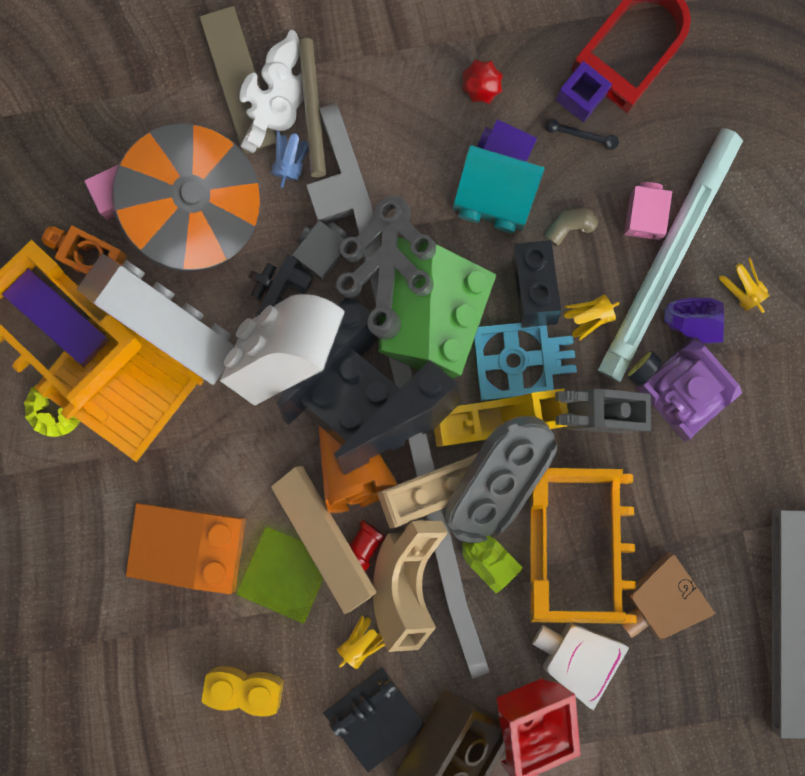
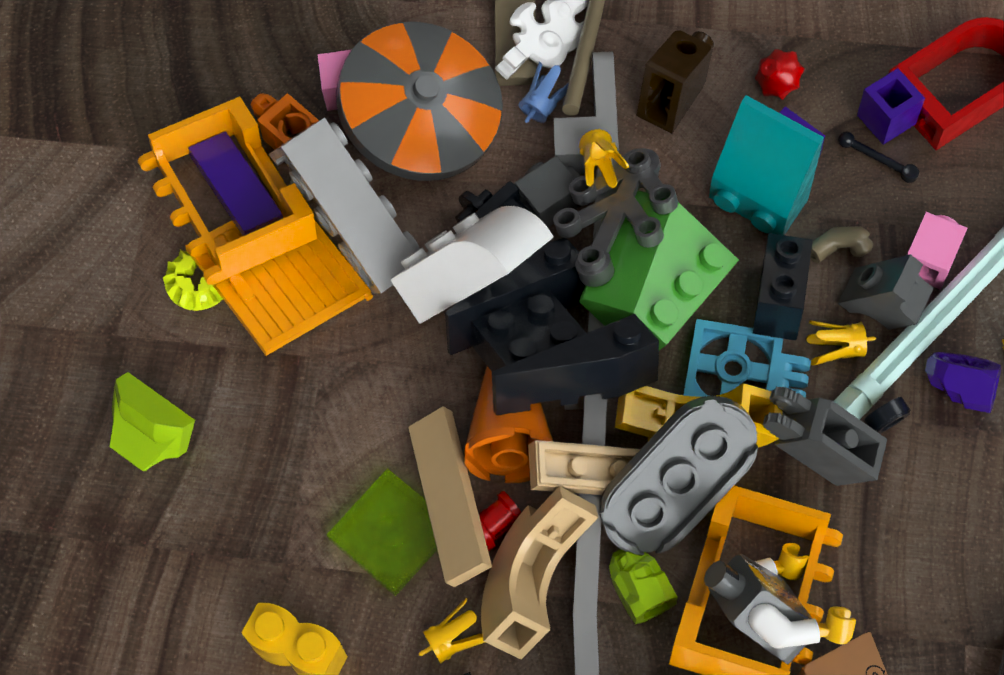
camera: 25 degrees right, 20 degrees down
(60, 549) = (147, 424): none -> lime slope
(186, 548) = (291, 466): orange slope -> none
(357, 210) = (598, 151): none -> yellow piece
(397, 112) = (685, 63): none -> dark brown torso
(593, 563) = (768, 609): none -> torso
(620, 264) = (888, 292): none -> dark grey brick
(690, 389) = (941, 457): medium lavender brick -> none

